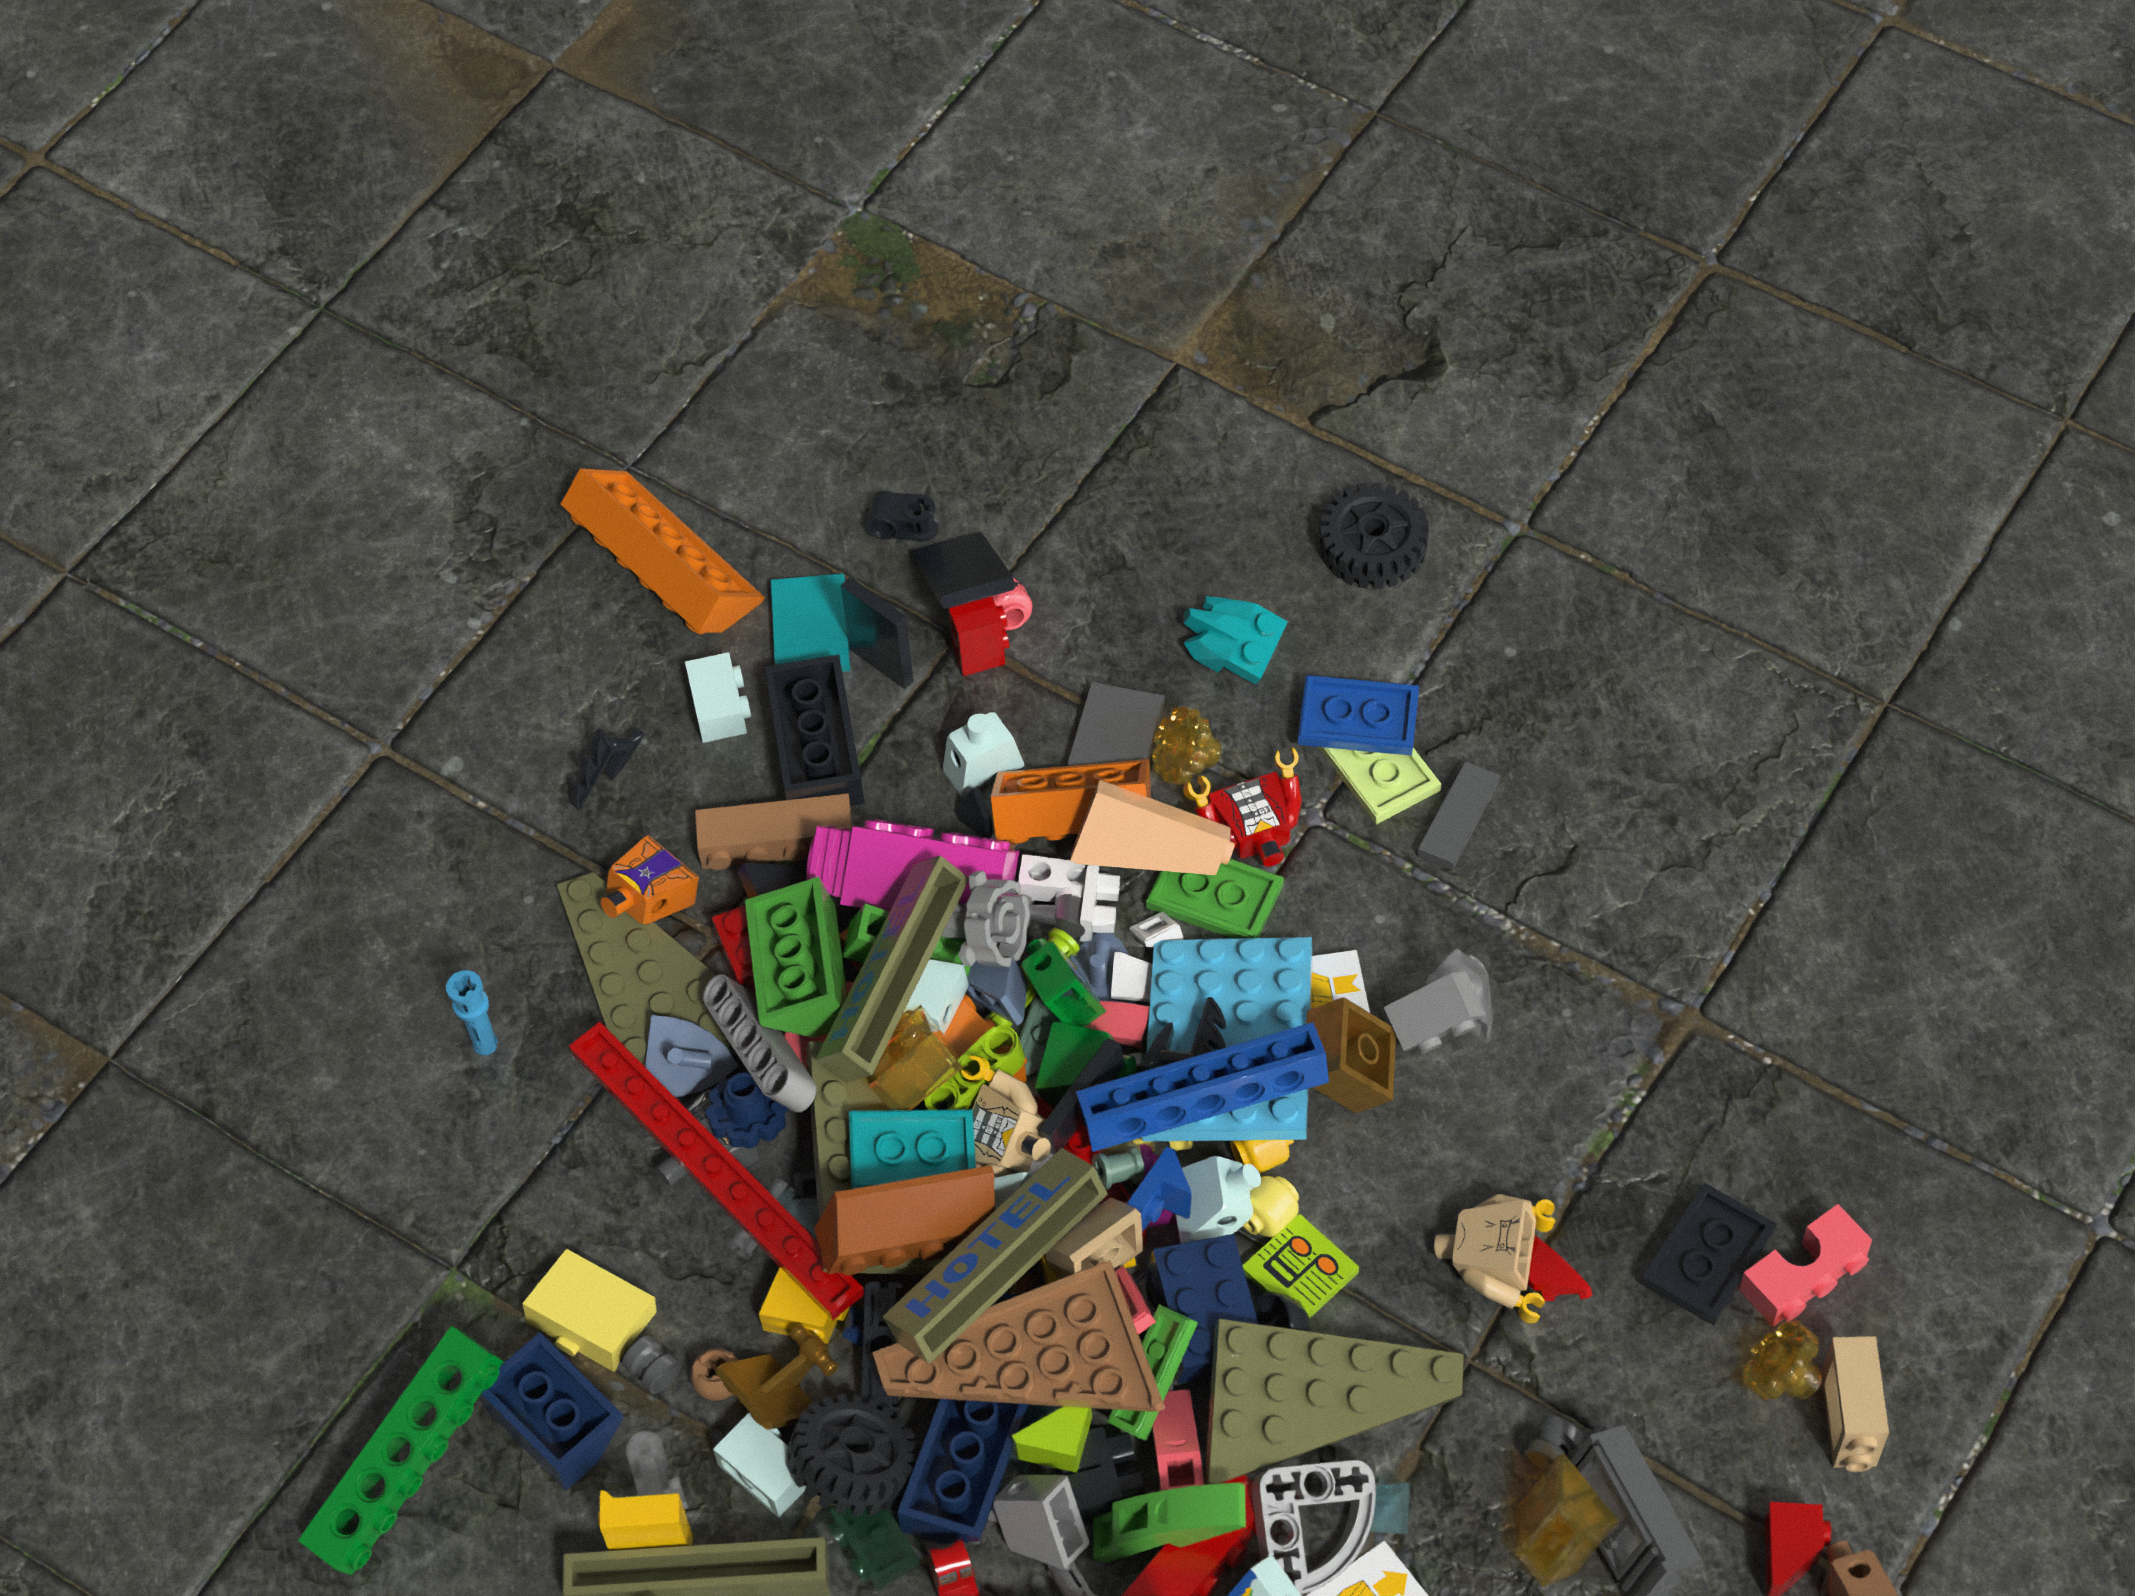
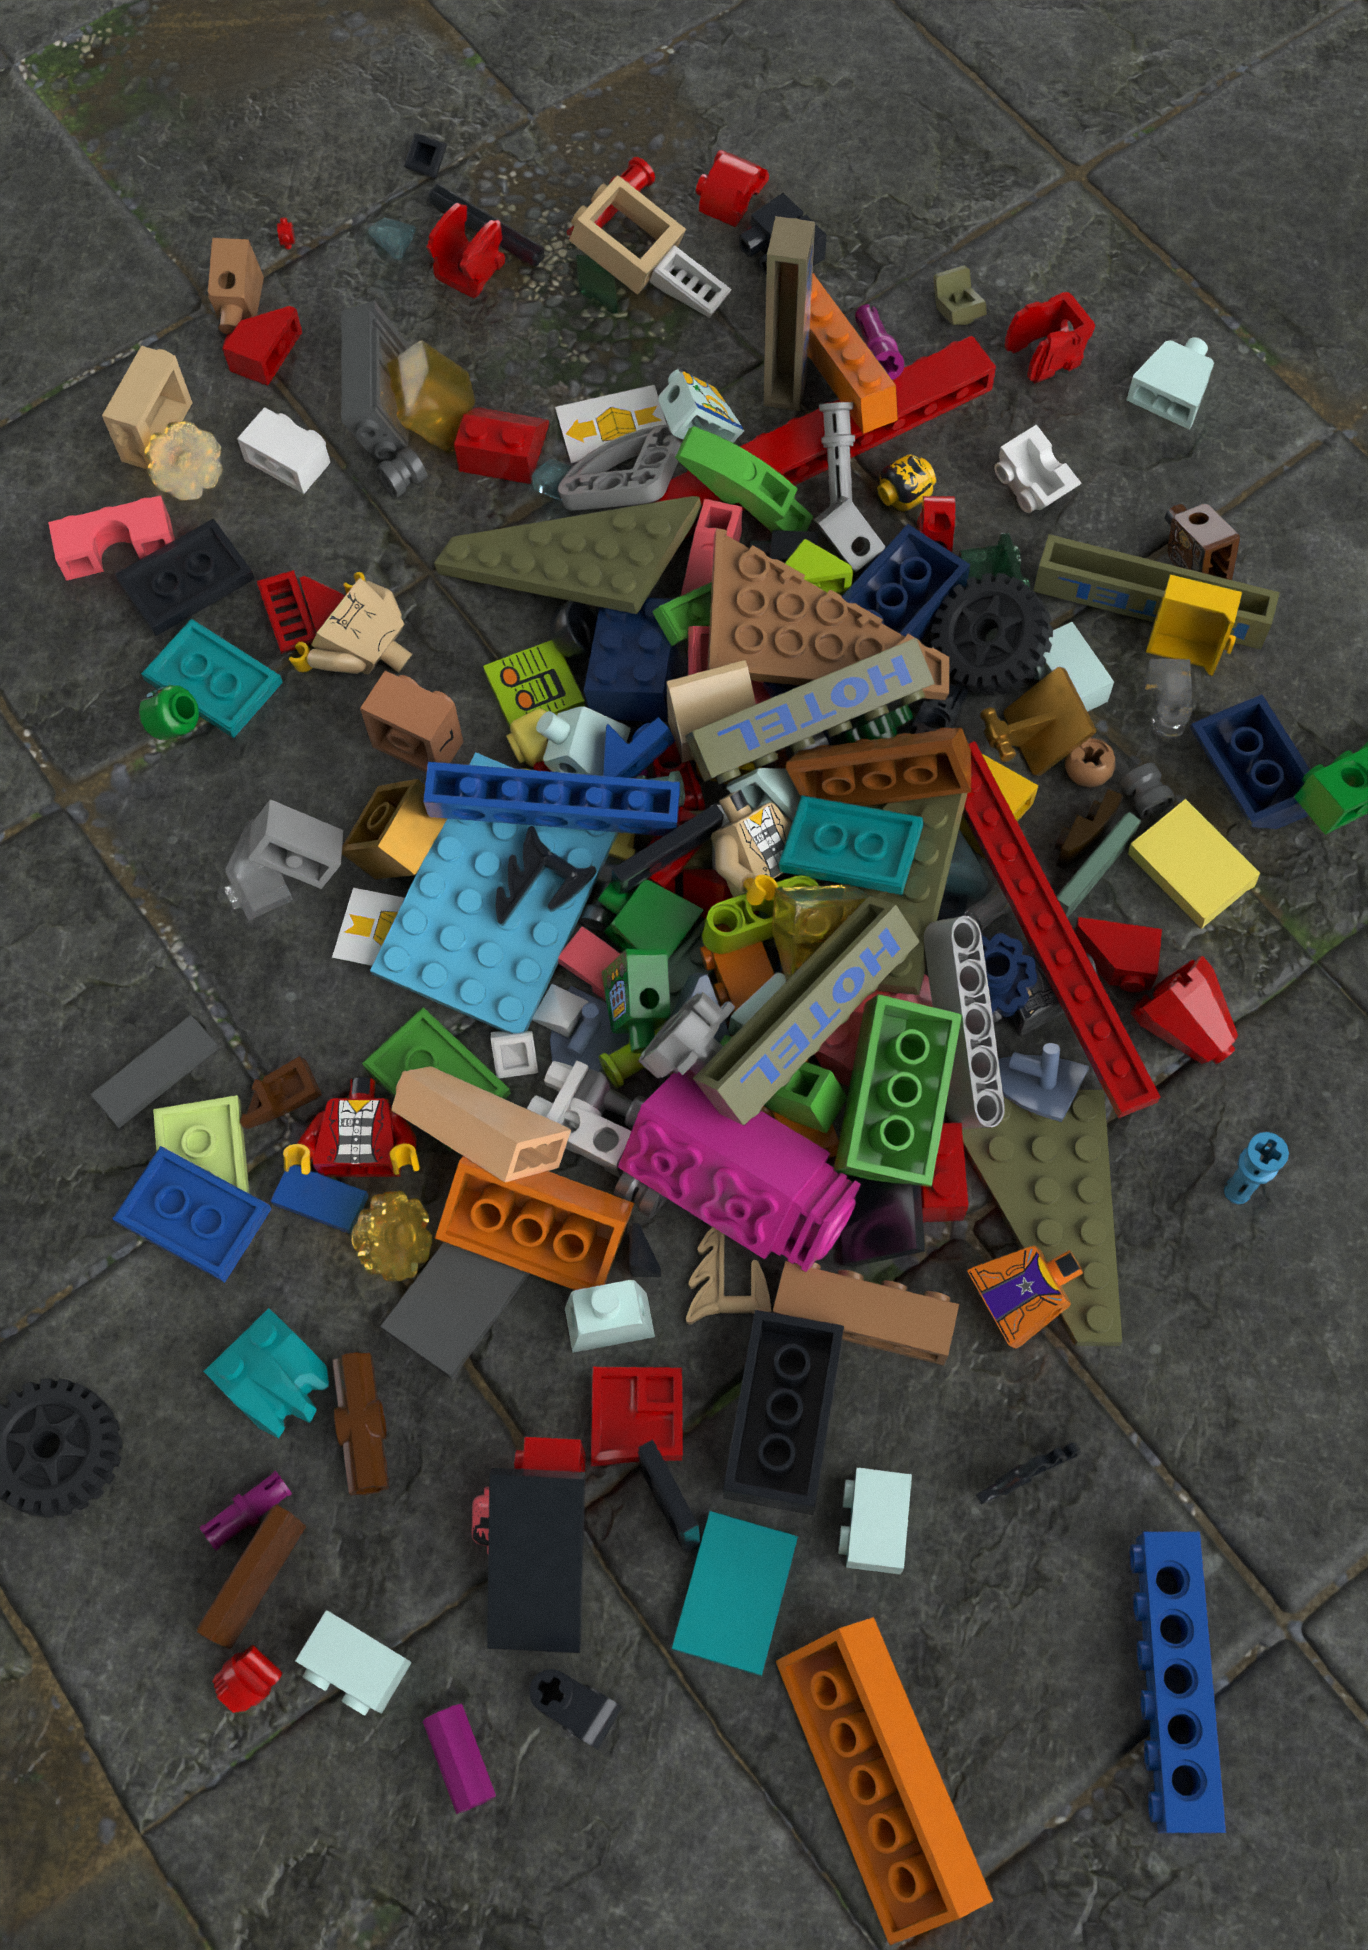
camera: 160 degrees left, 10 degrees up
(441, 625) = (1203, 1807): none -> blue brick
(566, 1155) = (1190, 1013): none -> red cone
(638, 1197) = (1122, 952): none -> red slope
(682, 1270) = (1098, 863): none -> sand green tile
(701, 1298) = (1087, 831): none -> dark brown slope
(906, 809) = (711, 1296): none -> tan piece
(929, 704) = (633, 1409): none -> red plate
(970, 463) = (459, 1758): none -> magenta axle
(1073, 488) = (352, 1663): none -> light aqua brick
(1145, 628) = (360, 1424): none -> reddish brown piece
(1146, 454) = (245, 1680): none -> red piece
(1170, 498) = (251, 1577): none -> reddish brown tile
(1203, 549) = (245, 1510): none -> magenta pin
(1252, 764) = (320, 1199): none -> blue tile
(1342, 836) = (281, 1093): none -> reddish brown slope
(1388, 1162) = (411, 722): none -> nougat brick
(1467, 1525) = (500, 444): none -> red slope
(1607, 1275) = (281, 584): none -> red slope
(1621, 1169) = (218, 675): none -> teal tile
(1632, 1103) = (169, 712): none -> green head
(1690, 1426) = (284, 450): none -> white brick

